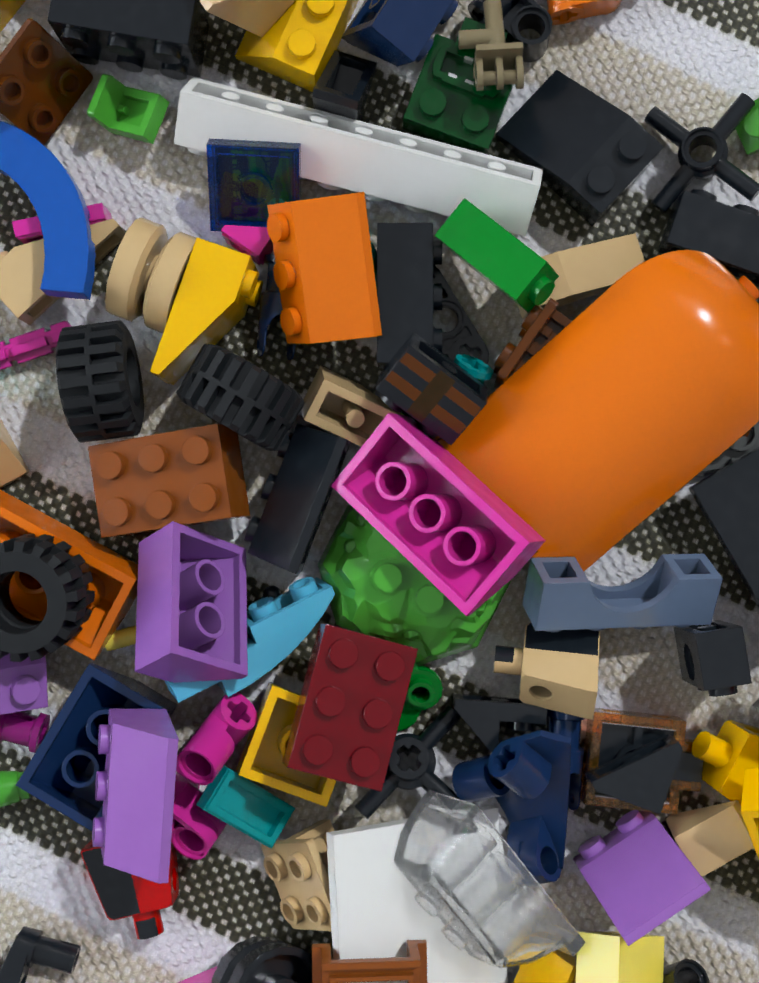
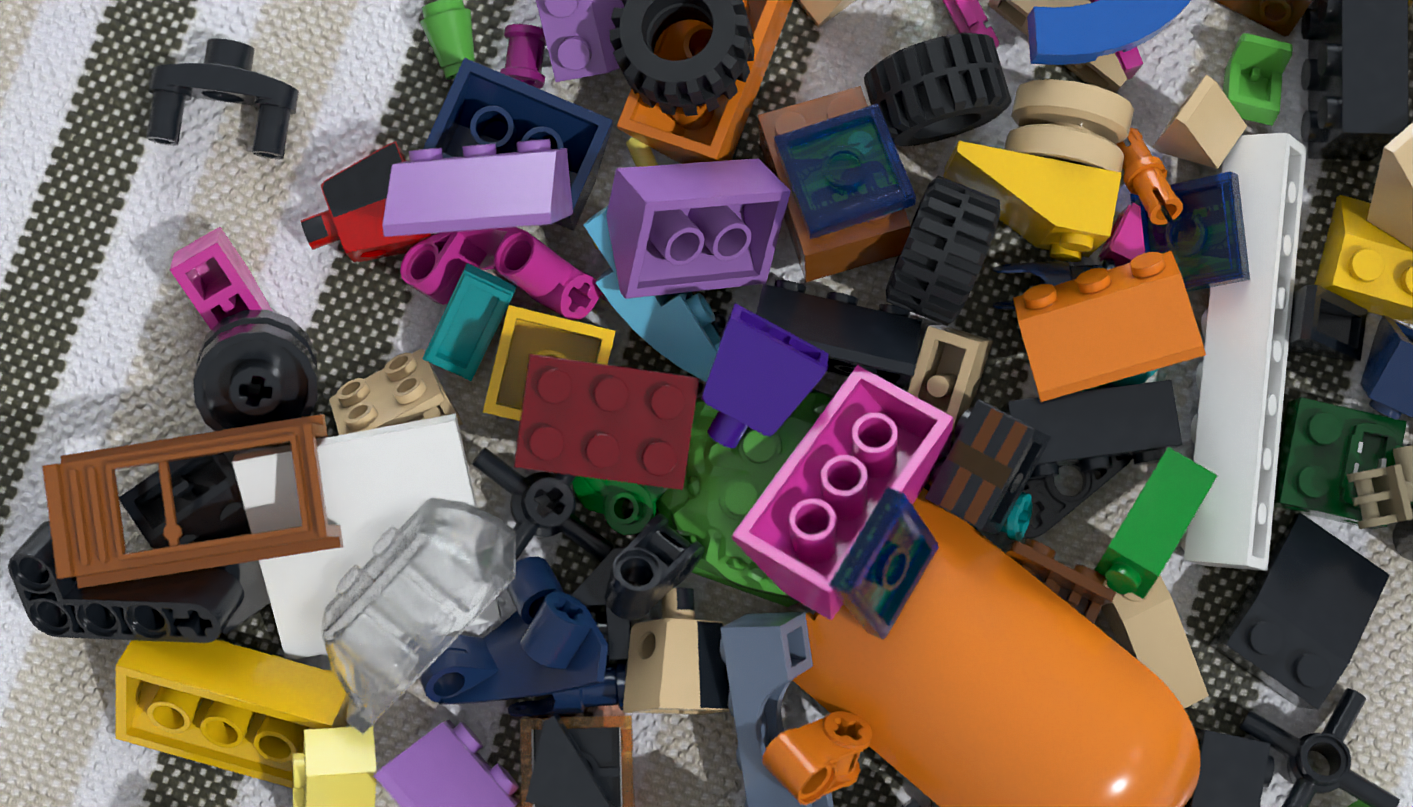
camera: 80 degrees right, 5 degrees down
(162, 473) = (844, 171): none -> clear blue tile
(163, 161) = (1202, 127): none -> tan slope
(201, 215) = (1146, 177): none -> orange pin
(330, 572) = (758, 377): none -> dark purple torso
(471, 675) = (654, 560): none -> black piece
(506, 489) = (884, 563): none -> tile
(651, 563) = (818, 755): none -> orange piece

